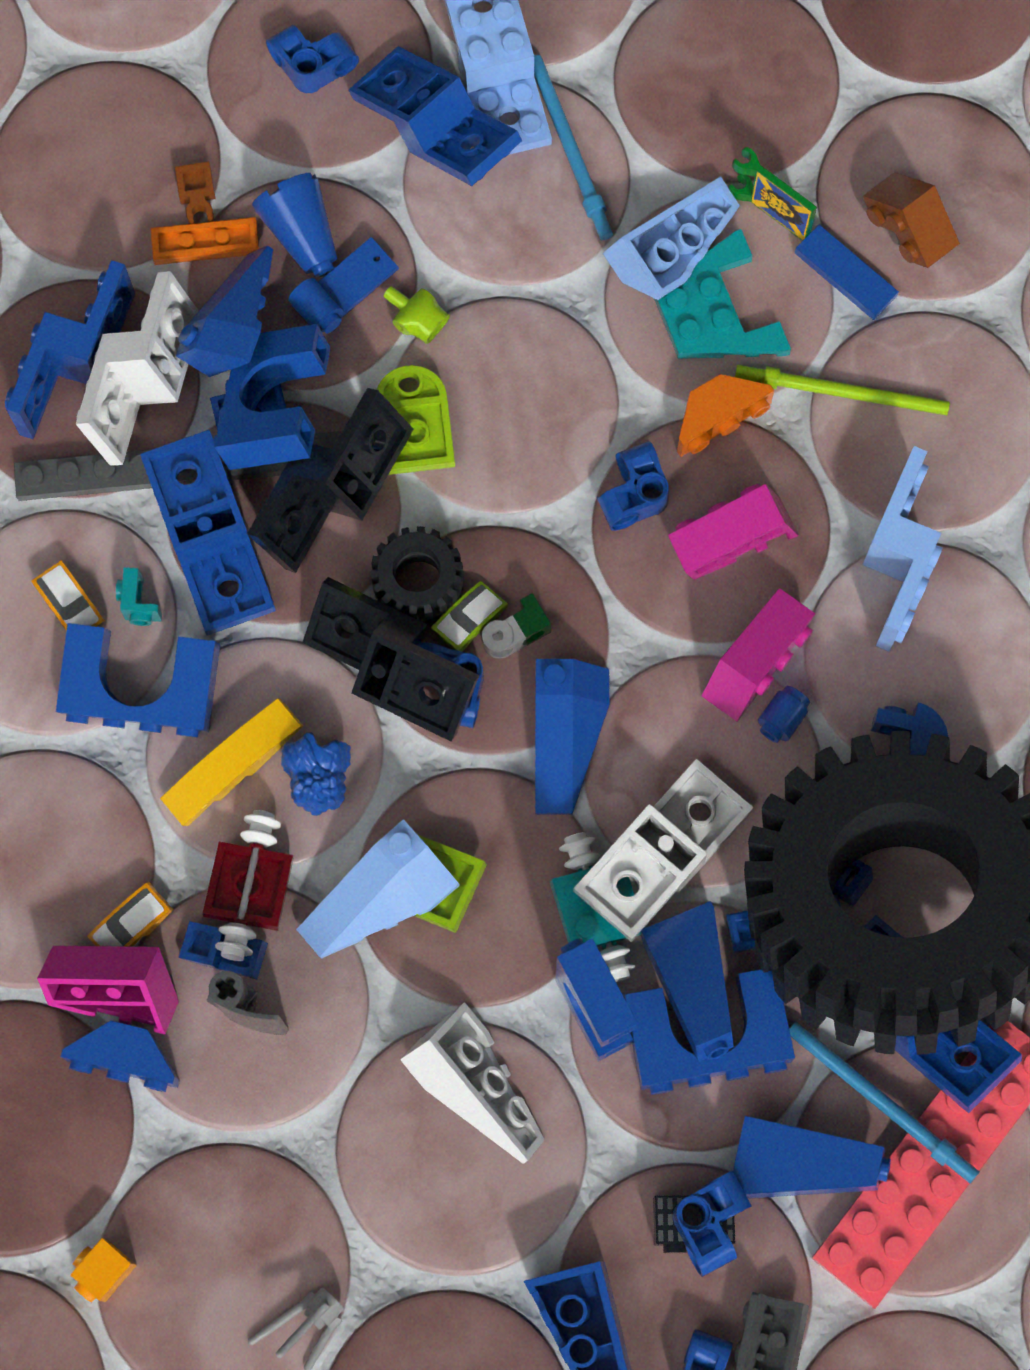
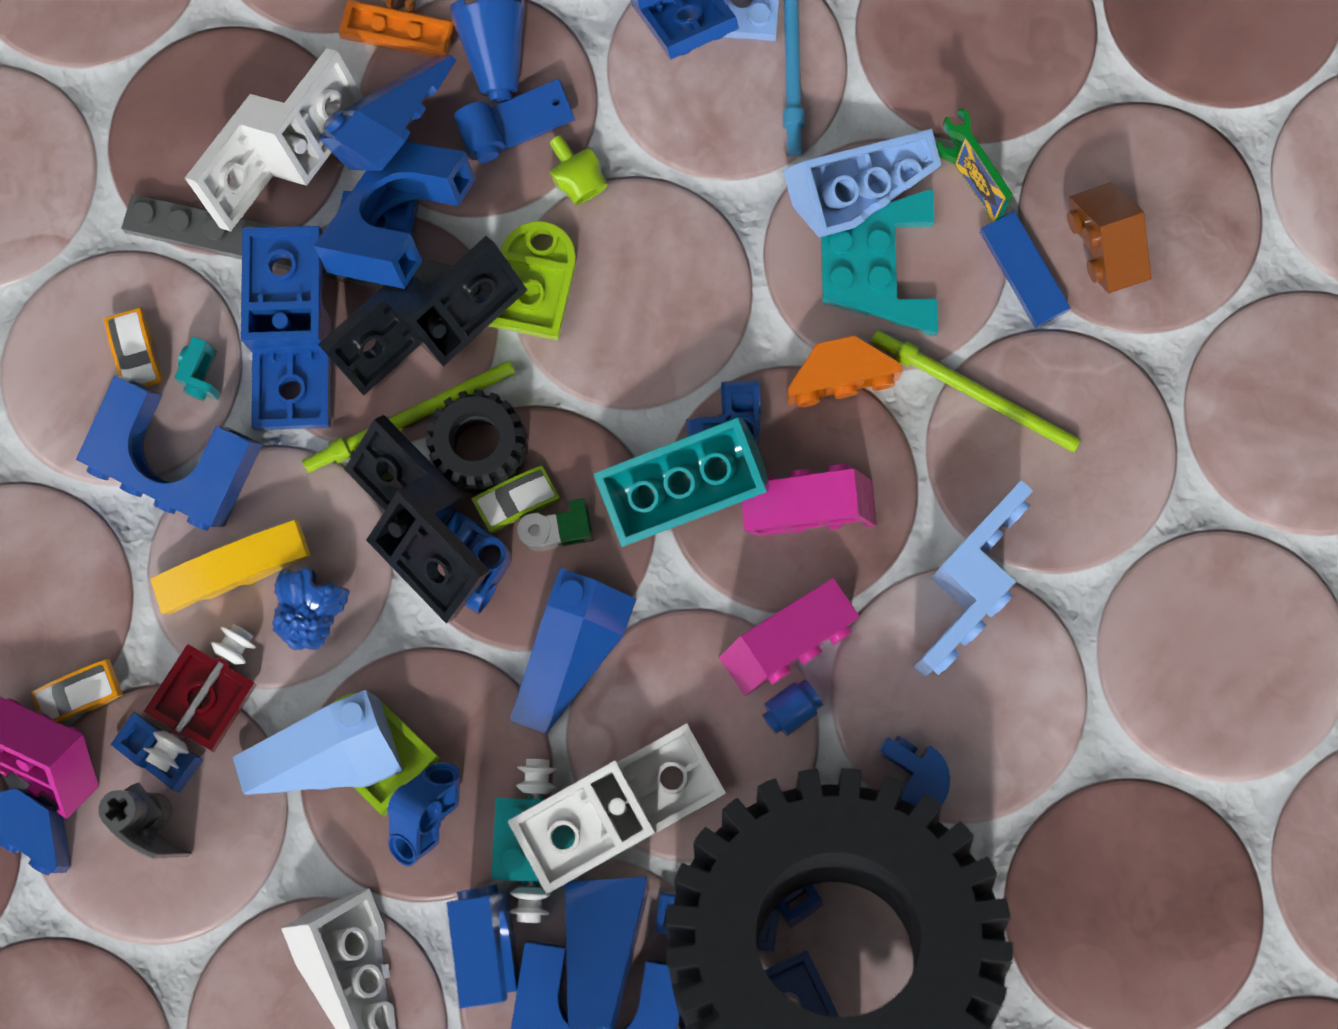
camera: 25 degrees right, 5 degrees up
(67, 349) = (214, 95): blue bracket -> none
(294, 625) = (341, 449): none -> lime bar
(487, 914) = (418, 810): none -> blue piece
(616, 547) = (683, 481): none -> teal brick

